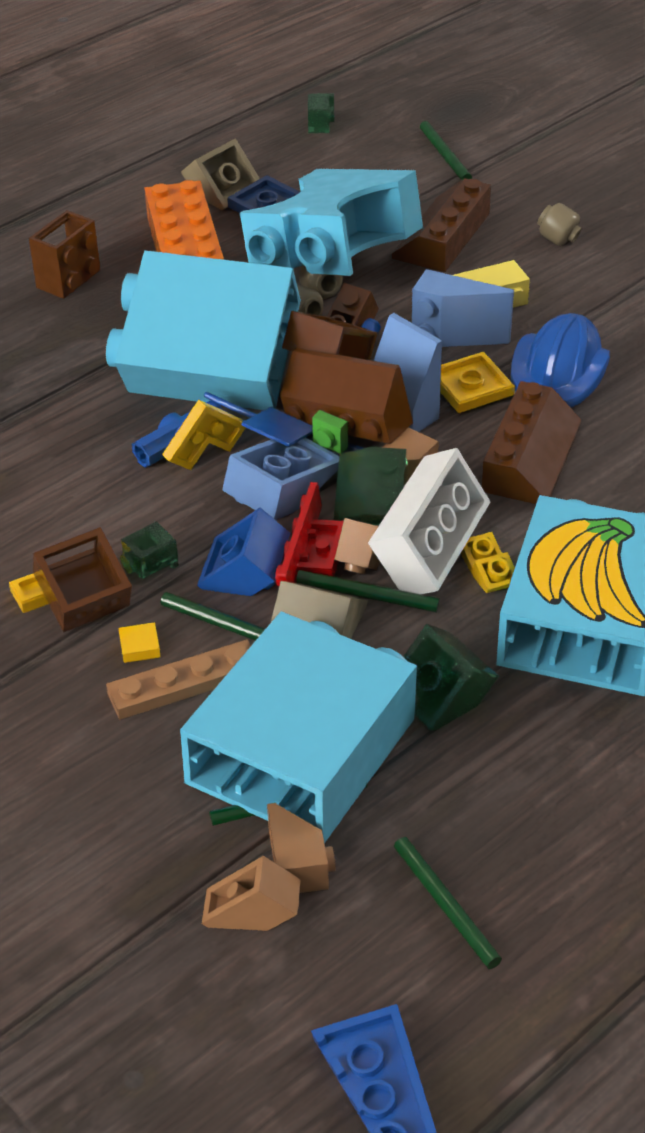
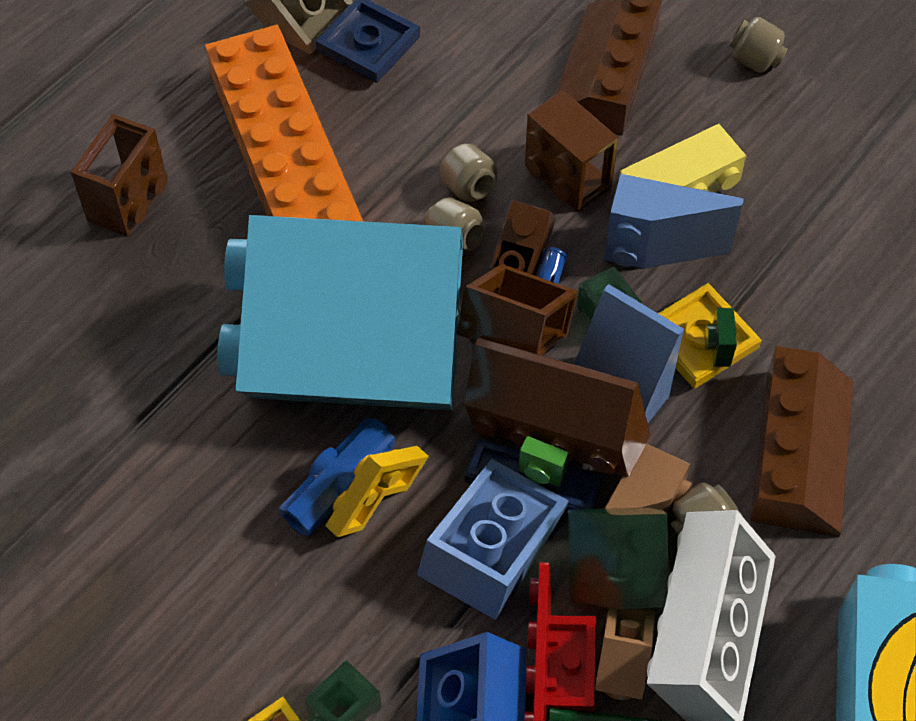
camera: 10 degrees left, 15 degrees up
(269, 422) = (463, 454): blue piece -> none
(334, 219) = (475, 94): medium azure brick -> none
(385, 258) = (561, 144): none -> reddish brown piece
(480, 374) = (721, 337): none -> dark green plate
(487, 562) = (791, 661): yellow slope -> none
(563, 357) = (815, 296): blue piece -> none

